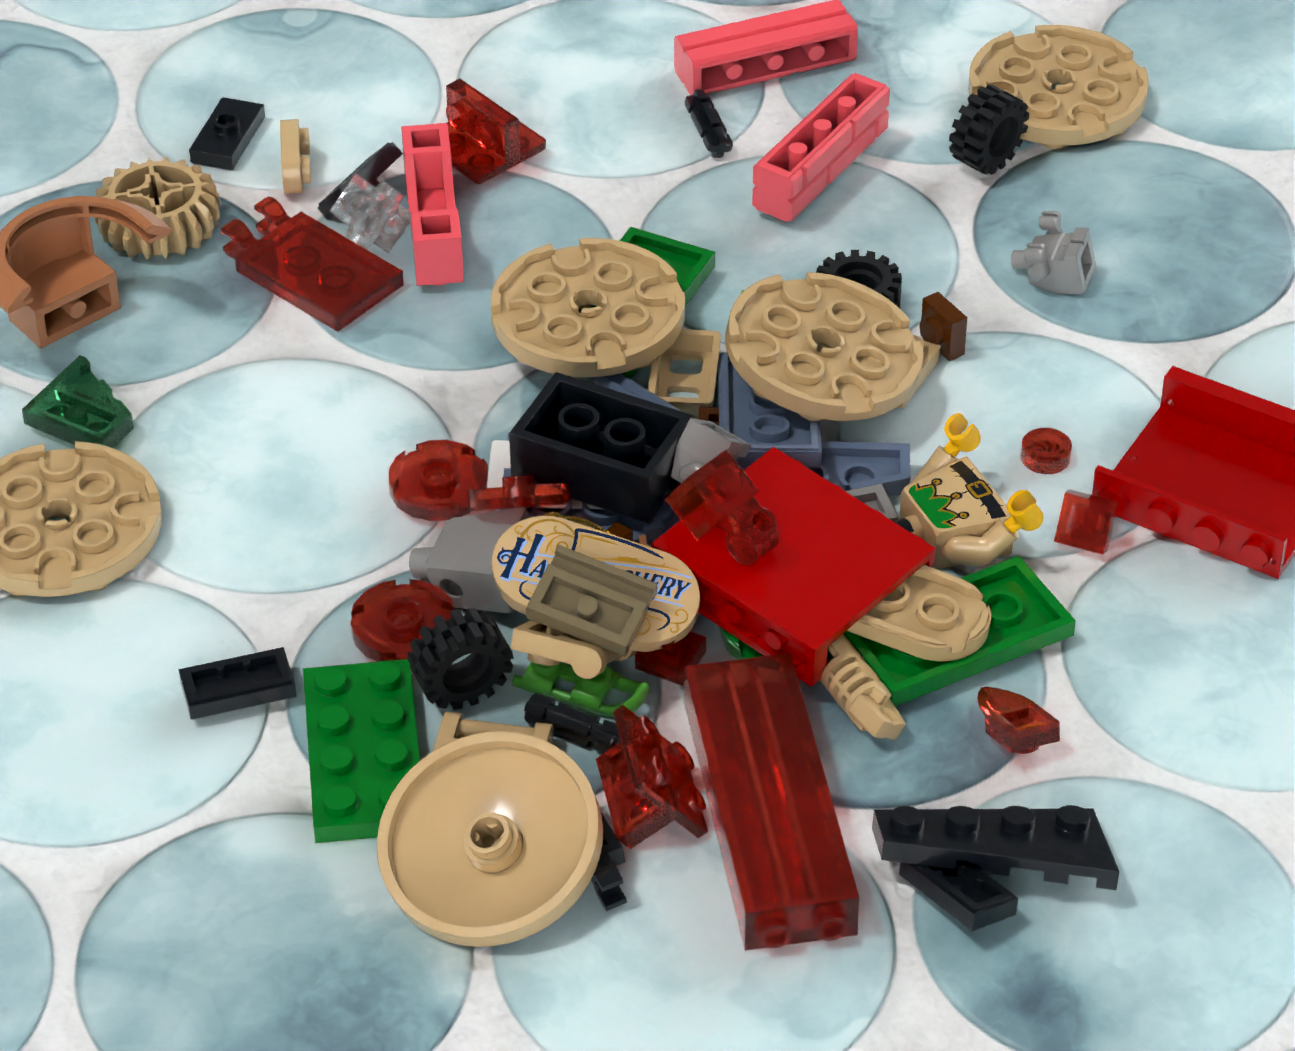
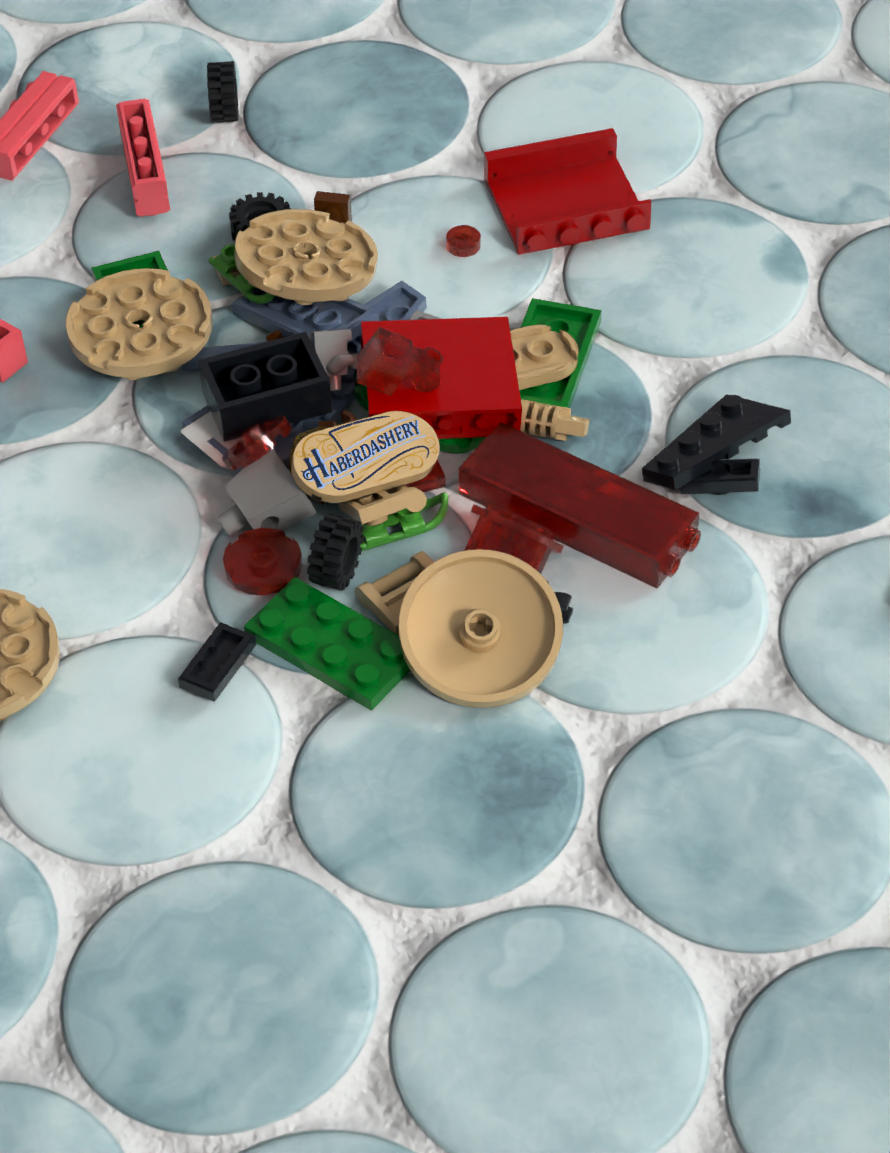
camera: 45 degrees left, 5 degrees up
(435, 479) = (173, 475): clear red plate -> none
(572, 722) = (428, 542): black axle -> none
(591, 600) = (386, 463): dark tan plate -> none
(693, 346) = (240, 321): tan piece -> none
(708, 123) = (48, 186): black axle -> none
(958, 508) = (472, 292): torso -> none
(1016, 720) = (635, 380): clear red plate -> none
(1057, 259) = (341, 139): light grey piece -> none
(1086, 521) = (538, 259): clear red tile -> none
(1100, 81) = (188, 44): tan plate -> none

